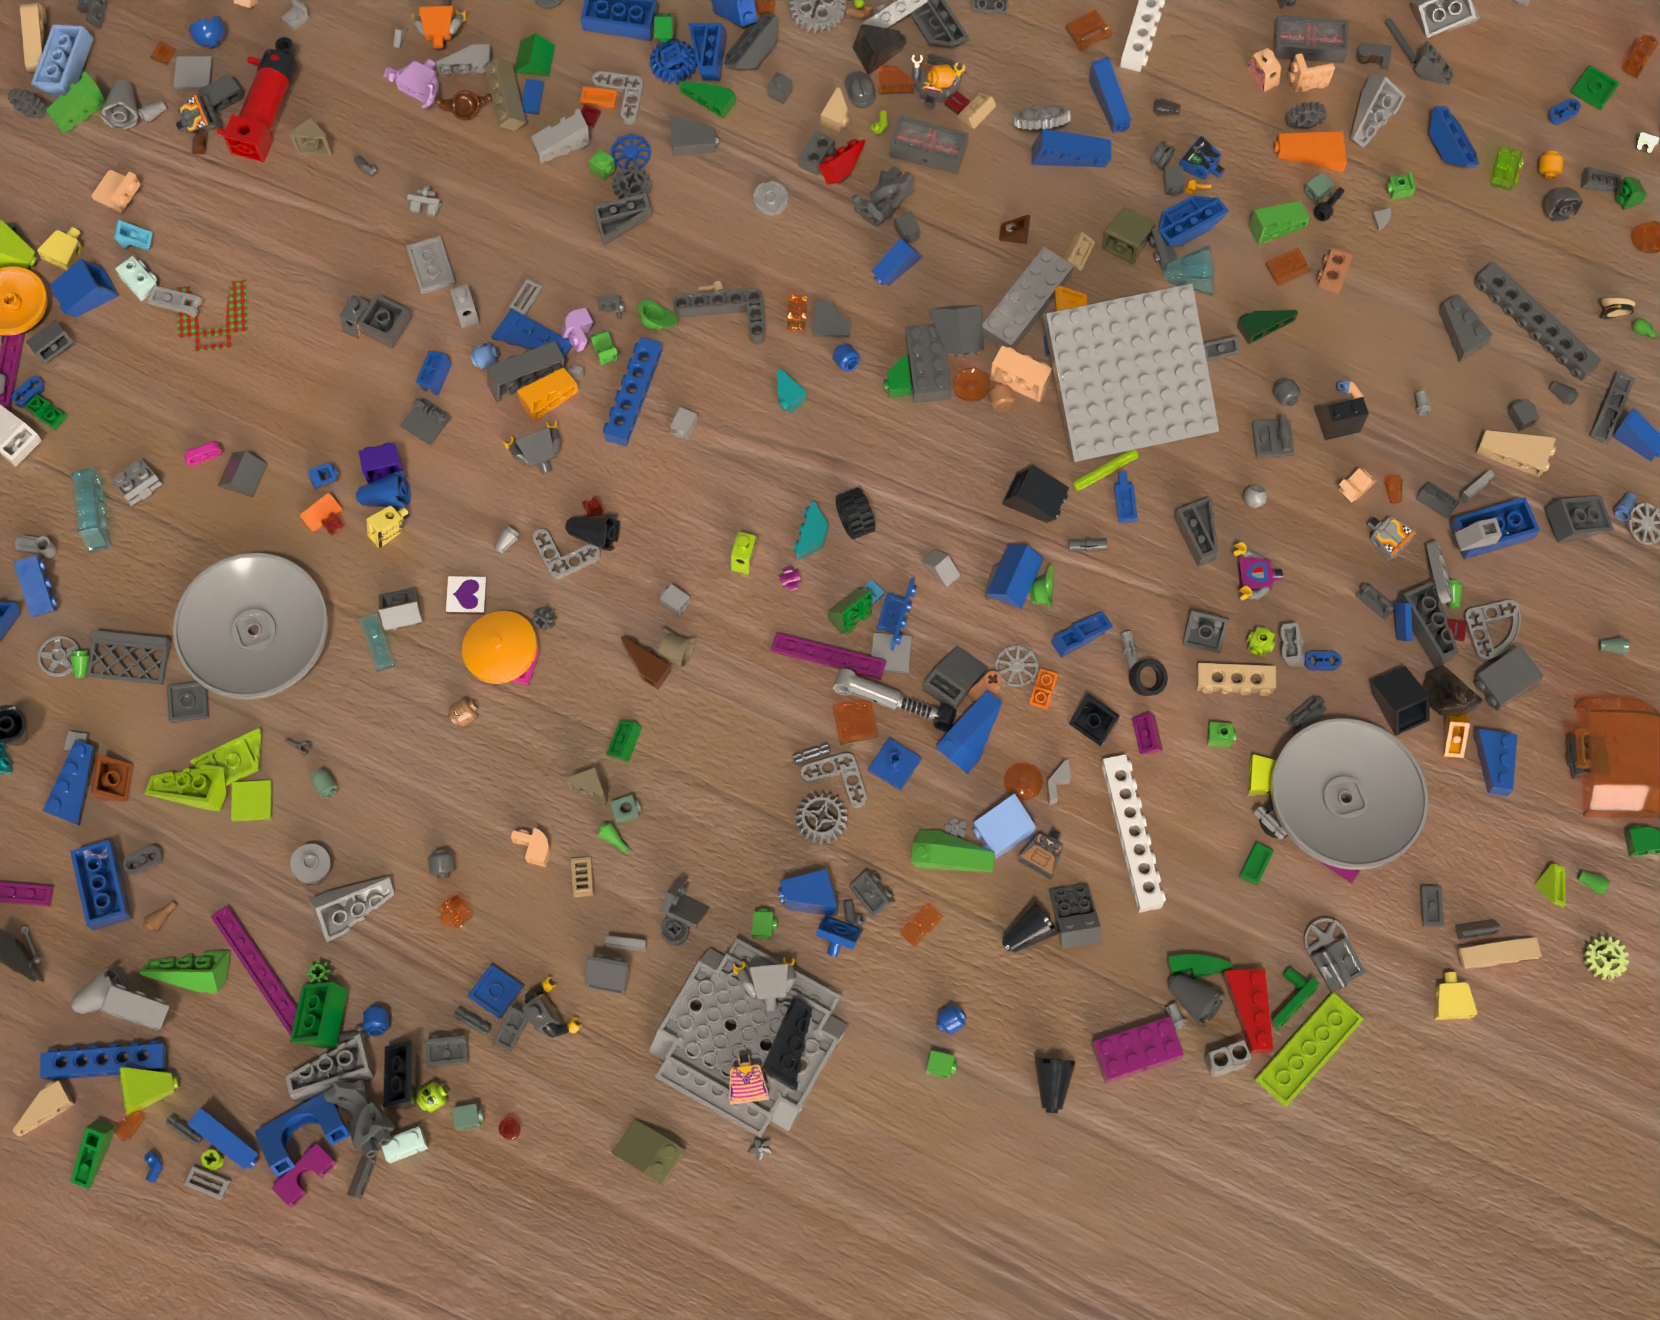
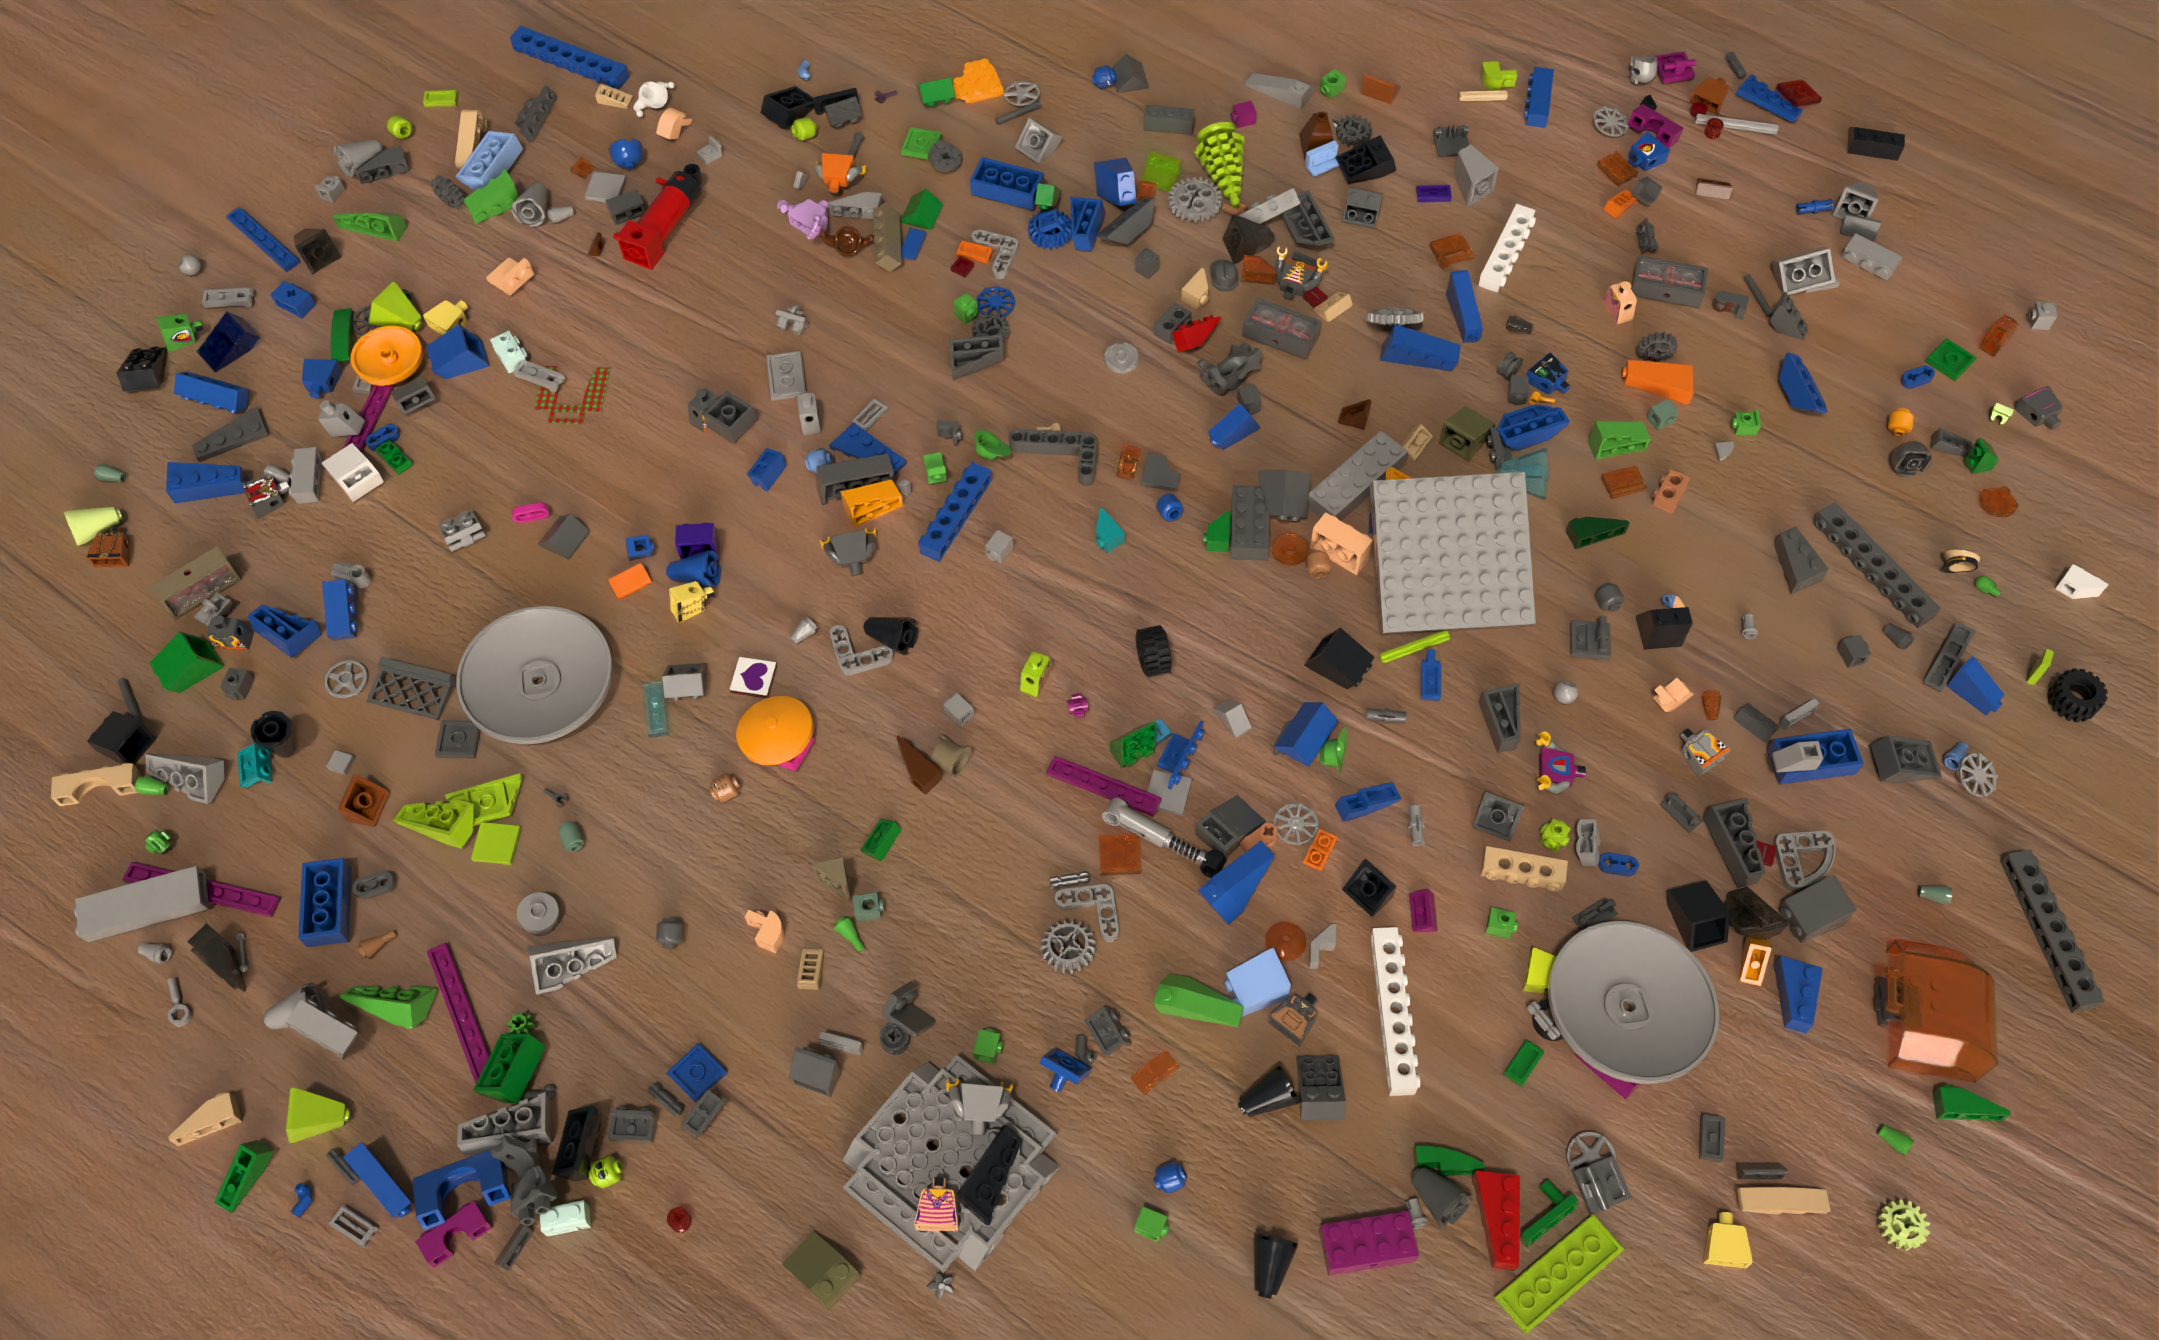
camera: 10 degrees right, 10 degrees down
(51, 1060) = (227, 1073): blue brick -> none
(69, 790) = (320, 806): blue wing -> none
(79, 662) = (363, 686): bright green cone -> none
(90, 510) = (410, 549): clear light blue wedge -> none
(128, 234) = (510, 312): medium azure slope -> none
(128, 1126) = (287, 1153): clear orange cone -> none
(197, 114) = (599, 218): dark grey torso -> none
(211, 1154) = (364, 1208): lime bush -> none
(310, 139) = (697, 252): dark tan slope -> none
(331, 523) = (637, 592): clear red wheel -> none
(362, 165) = (748, 288): dark grey arm -> none
(375, 1020) = (566, 1082): blue head -> none
(425, 421) = (749, 512): dark grey hinge -> none
(454, 913) = (670, 984): clear orange brick -> none
(467, 1117) = (637, 1199): sand green brick -> none
(544, 618) = (824, 709): dark grey gear -> none
(544, 1015) = (740, 1104): torso -> none
(562, 138) = (933, 280): light grey wedge -> none
(575, 326) = (912, 445): lavender brick -> none
(592, 506) = (894, 610): clear red wheel -> none
(692, 137) = (1055, 295): dark grey slope -> none
(712, 97) = (1080, 263): green slope -> none
(809, 894) = (1040, 1020): blue slope -> none
(812, 533) = (1107, 665): teal slope -> none
(883, 123) = (1240, 307): lime arm -> none
(894, 764) = (1153, 903): blue tile -> none
(941, 76) = (1303, 268): light orange head -> none
(956, 829) = (1207, 978): light grey plant -> none
(1161, 674) = (1445, 853): black tyre -> none
(1216, 1071) = (1453, 1280): light grey piece -> none
(1221, 347) = (1547, 548): dark grey slope -> none
(1309, 78) = (1664, 314): light nougat bracket -> none
(1324, 210) = (1666, 434): black piece -> none
(1377, 103) = (1729, 346): light grey wedge -> none
(1403, 621) = (1709, 835): blue tile -> none
(1439, 571) = (1752, 791): light grey beam -> none
(1456, 591) = (1764, 816): bright green cone -> none
(1506, 168) = (1855, 420): clear neon green brick -> none
(1518, 451) = (1845, 685): tan slope -> none
(1553, 884) = (1849, 1135): lime slope -> none

